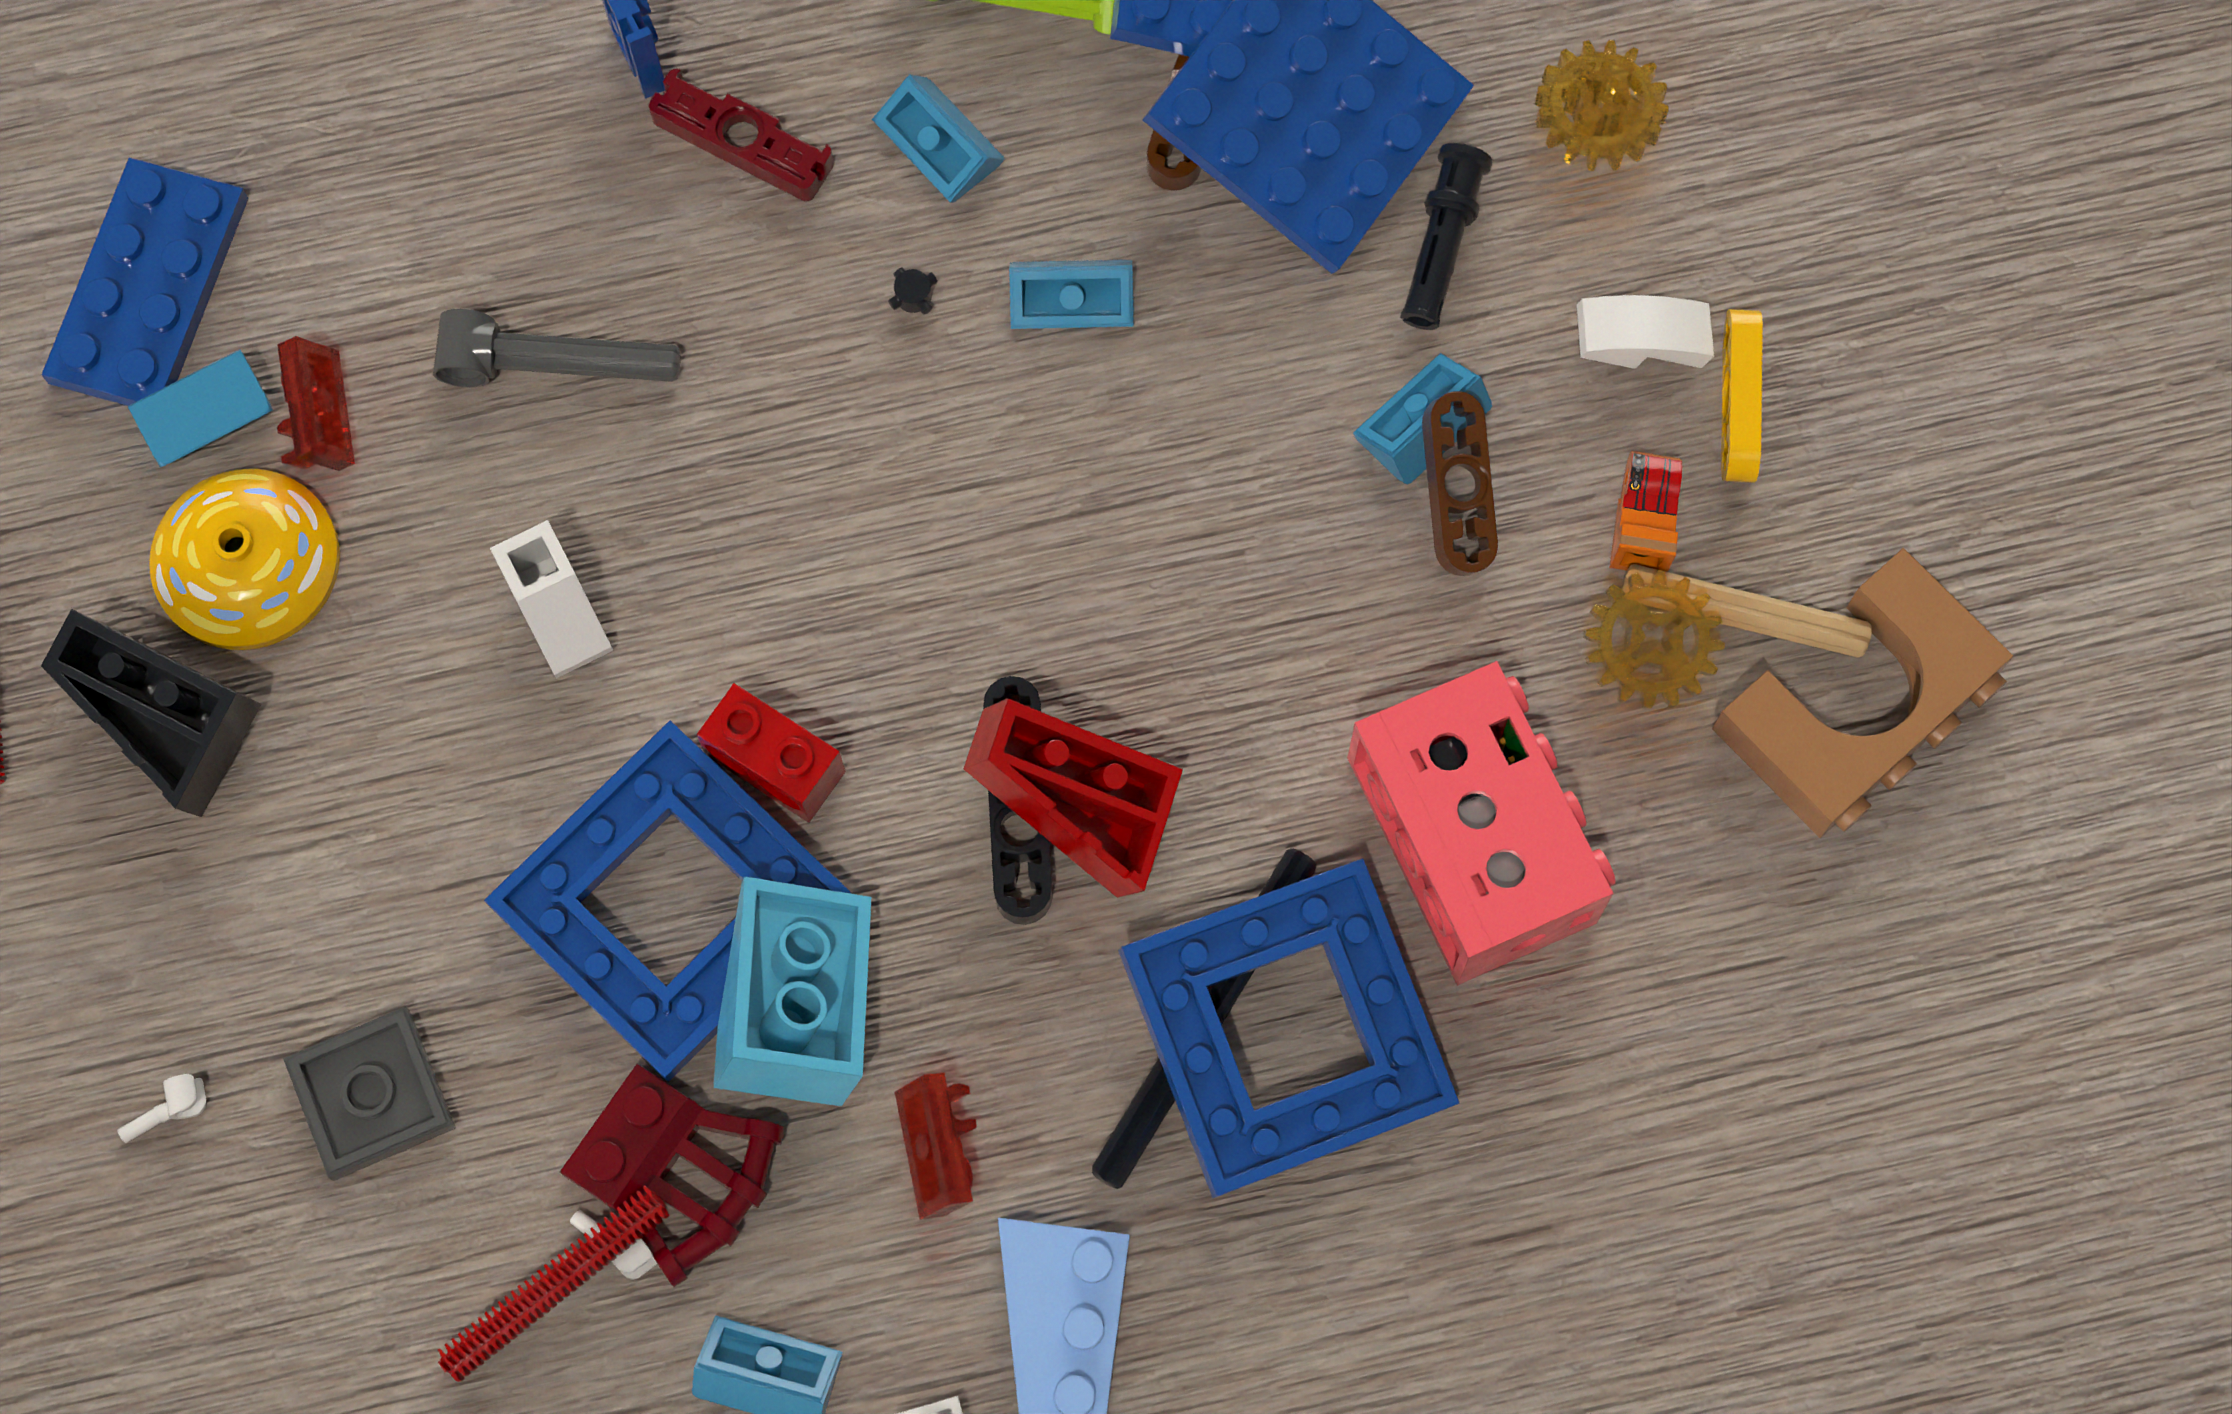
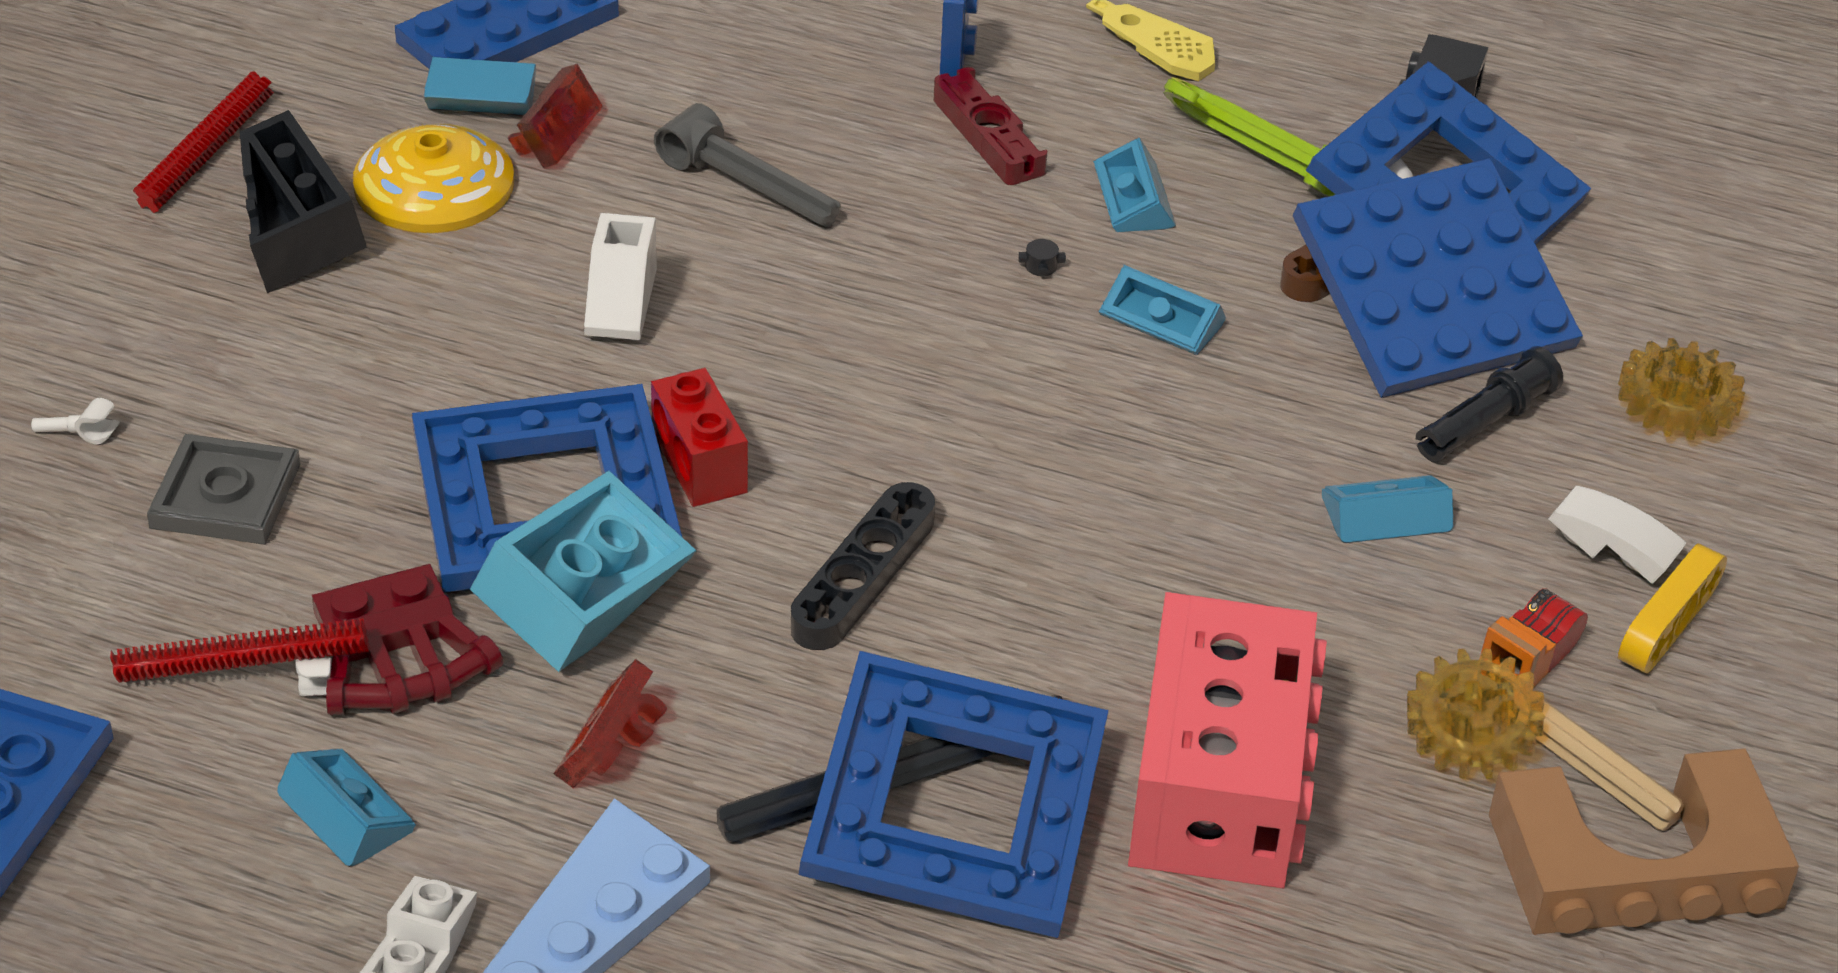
camera: 30 degrees right, 30 degrees down
(1077, 790) = (911, 549): red wedge -> none
(1478, 464) = (1386, 567): reddish brown beam -> none

